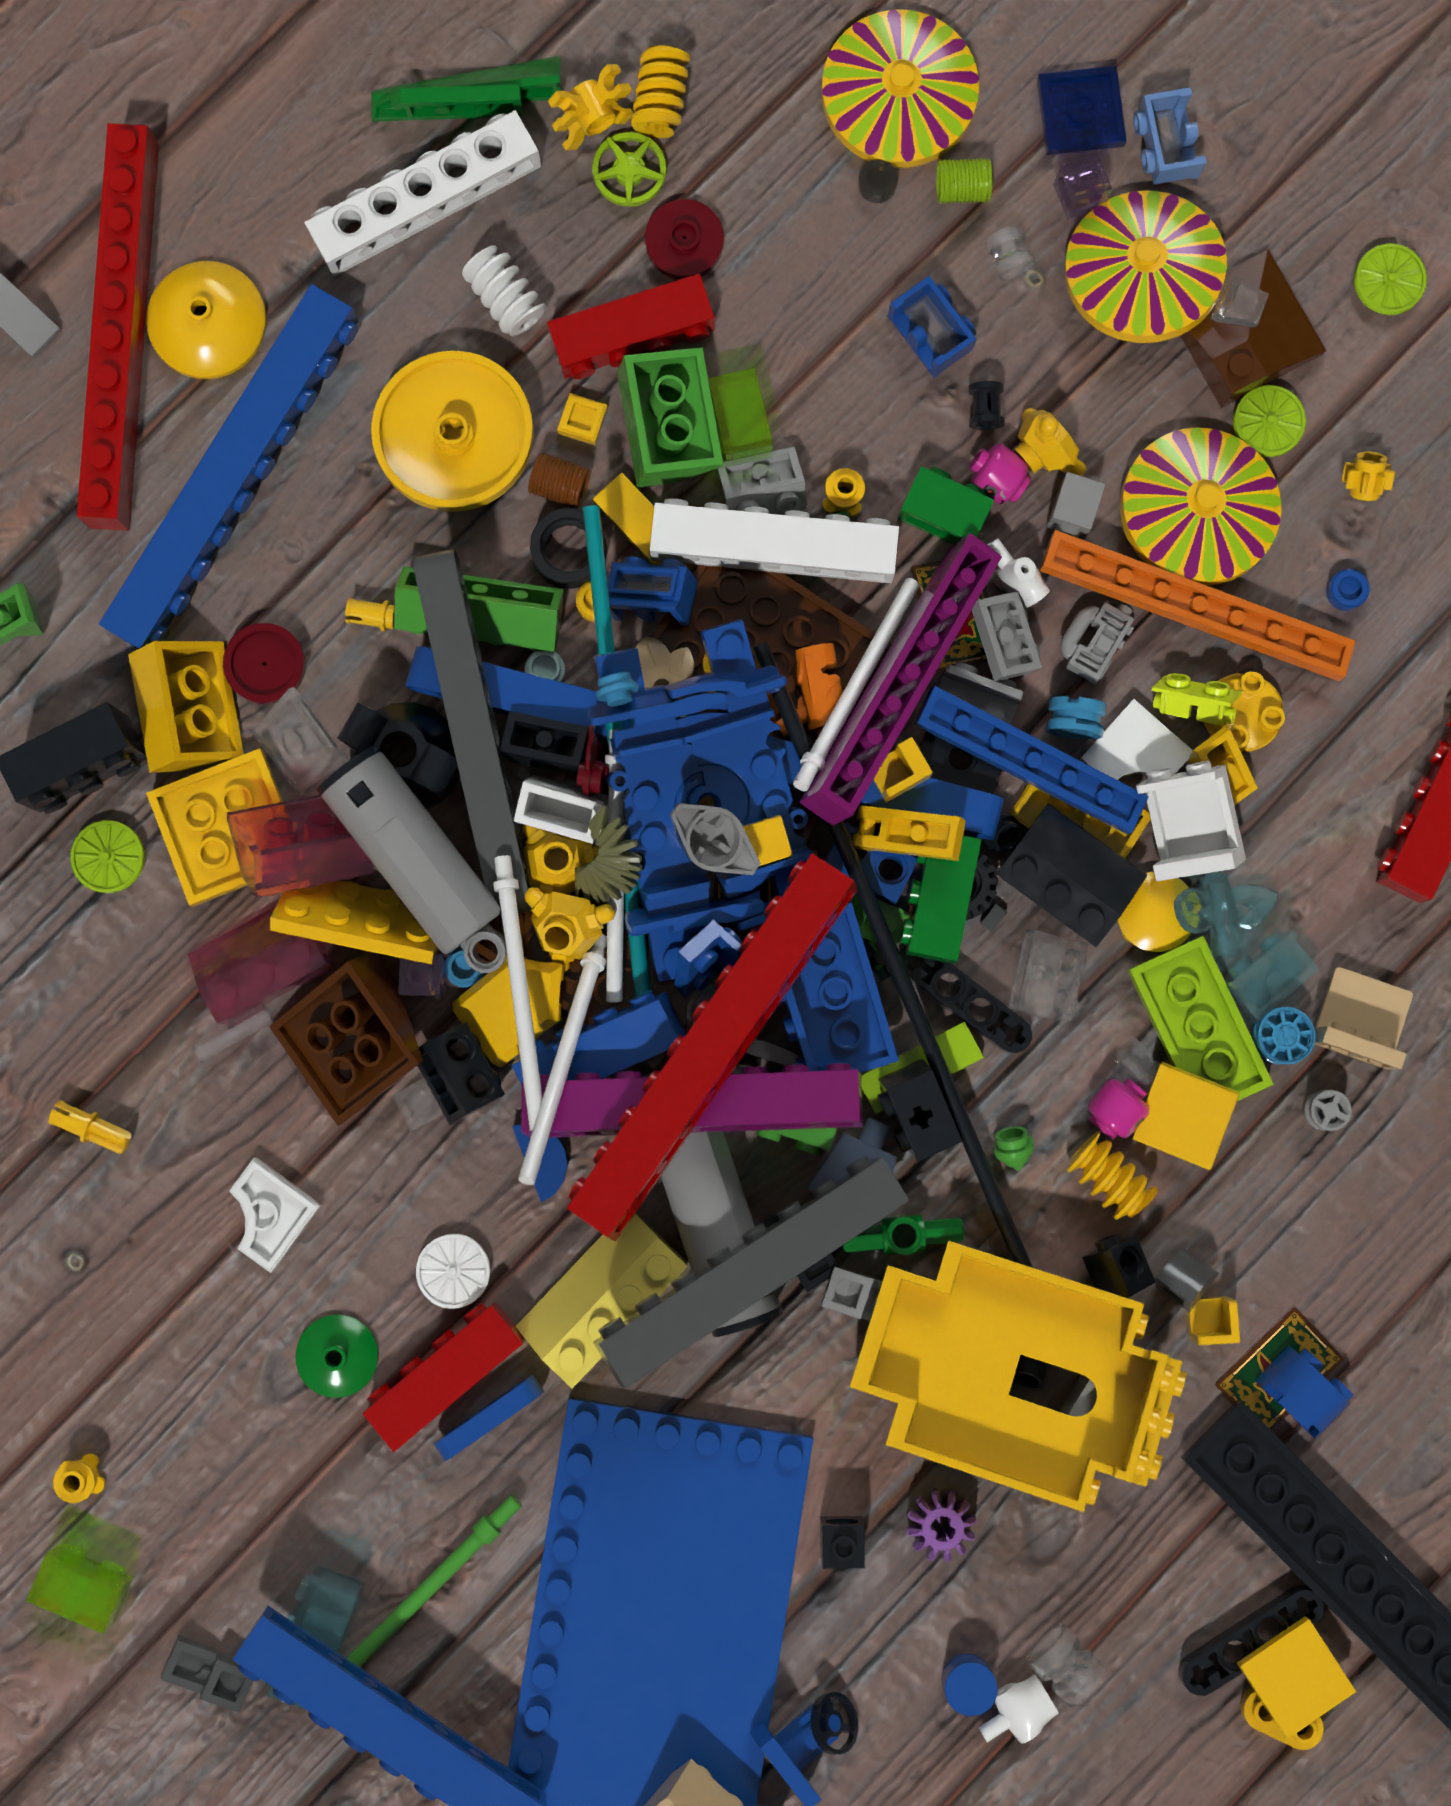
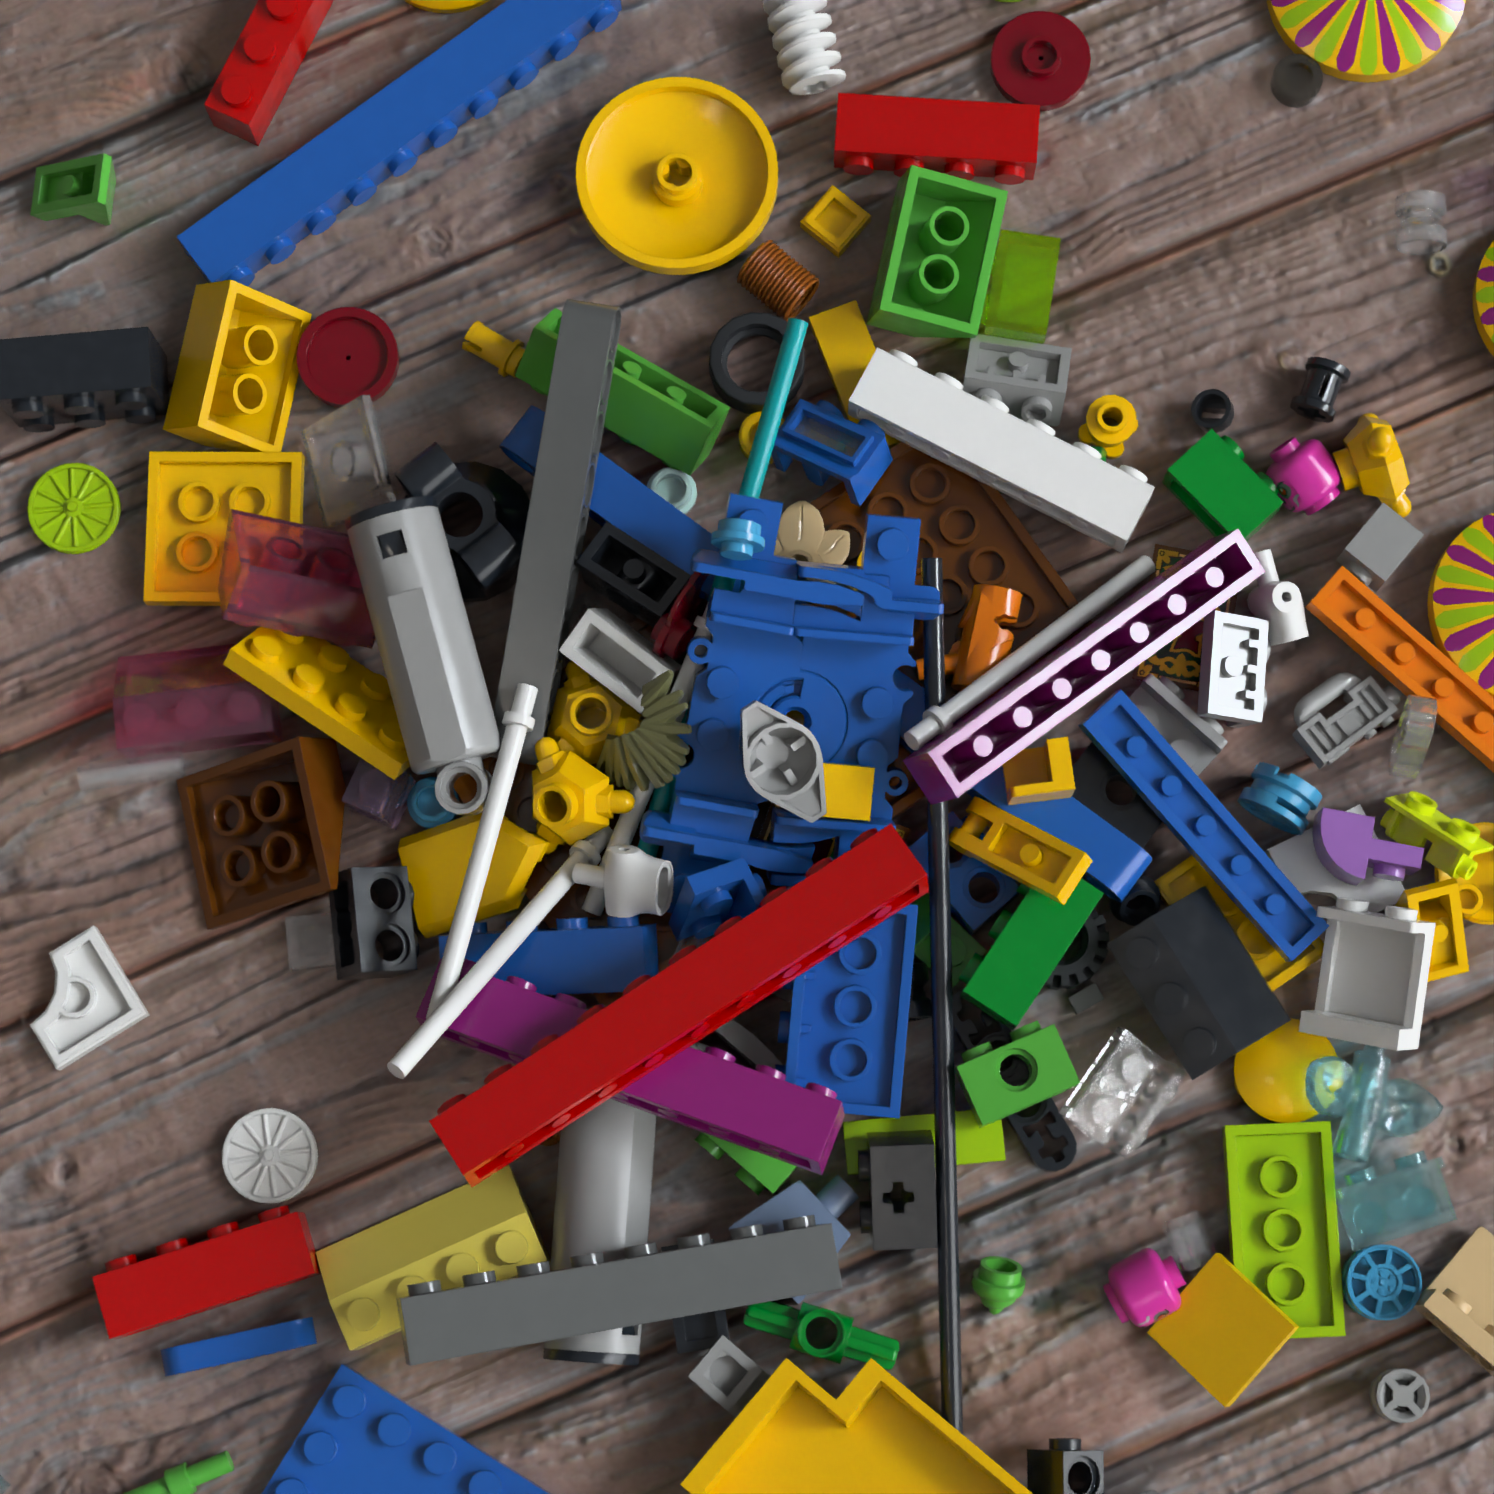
camera: 30 degrees right, 5 degrees down
(356, 1348) = (117, 1207): green dish -> none
(552, 1167) = (433, 1076): blue tile -> none
(636, 969) = (631, 881): none -> white piece
(912, 445) = (1213, 402): none -> black hinge
(932, 326) = (1293, 272): blue window -> none
(964, 181) = (1398, 118): lime piece -> none
(991, 985) = (1048, 1068): none -> bright green brick
(1111, 1177) = (1100, 1367): yellow piece -> none
(1140, 735) = (1347, 848): none -> medium lavender brick
(1154, 635) = (1412, 737): none -> clear beam

